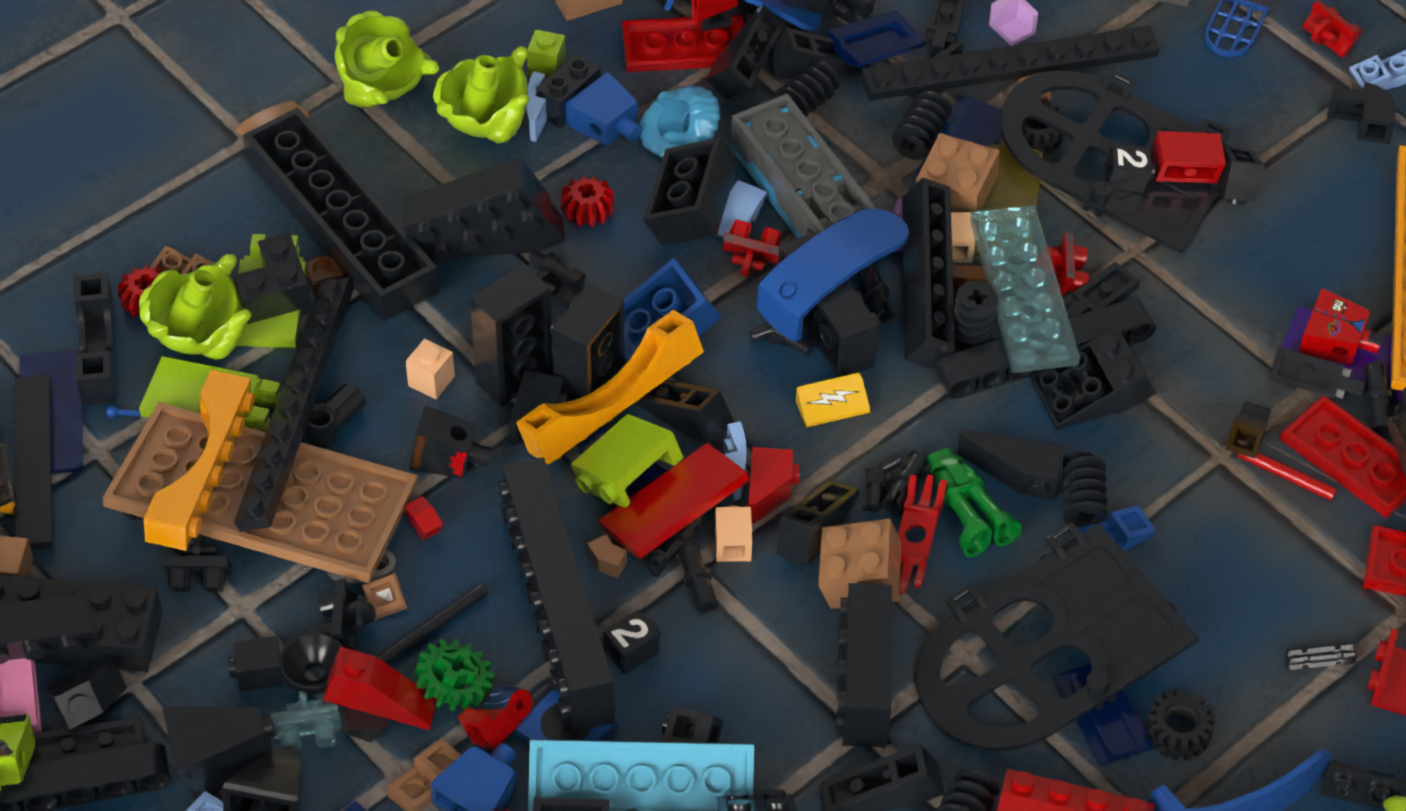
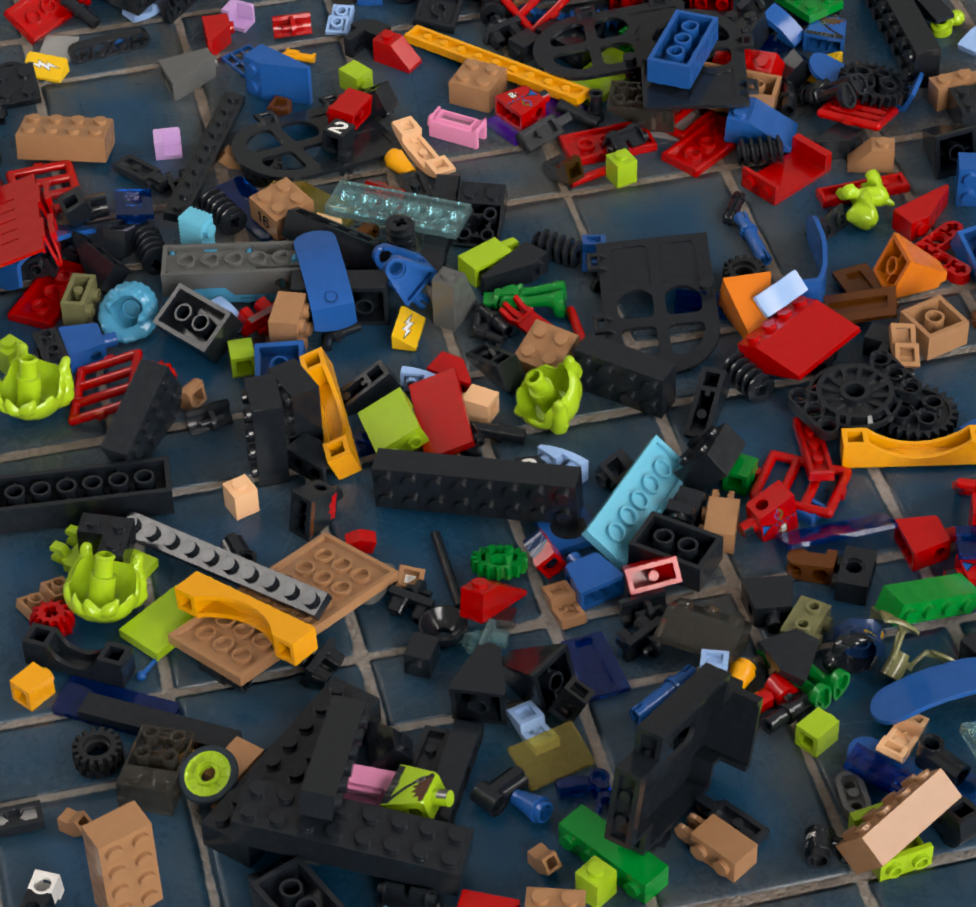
camera: 60 degrees left, 10 degrees down
(38, 322) = (32, 686): none -> light orange brick
(546, 143) = (82, 385): none -> red bar
(582, 246) = (193, 394): none -> medium nougat brick
(671, 67) = (80, 299): none -> olive brick
(674, 667) = (560, 456): none -> light blue slope
(676, 247) = (241, 357): none -> lime brick
(735, 275) = (290, 318): none -> medium nougat brick
(772, 600) = (550, 396): none -> lime piece
(851, 119) = (196, 227): none -> medium azure brick
(896, 348) = (406, 273): none -> blue piece
(900, 417) = (451, 298): none -> dark grey slope
(947, 583) = (575, 322): none -> red bar
(1015, 419) = (483, 257): none -> lime hinge
(1103, 750) = (738, 303): none -> orange slope
(1122, 776) = (780, 293): none -> light blue slope
(1142, 253) = (398, 162): none -> light orange cone
(1171, 90) = (280, 105): none -> reddish brown tile
(1185, 263) = (418, 150): none -> light nougat slope
(1201, 53) = (277, 74): none -> blue slope
(1254, 279) = (456, 128): none -> bright pink window
(1275, 137) = (355, 76): none -> lime brick
(1276, 59) = (302, 57): none -> light orange piece
(1276, 694) = (748, 232): none -> blue pin
(1300, 491) = (621, 168): none -> lime brick
(1356, 264) = (477, 85): none -> medium nougat brick
(1358, 153) = (395, 51): none -> red slope
(1371, 472) = (631, 133): none -> black hinge

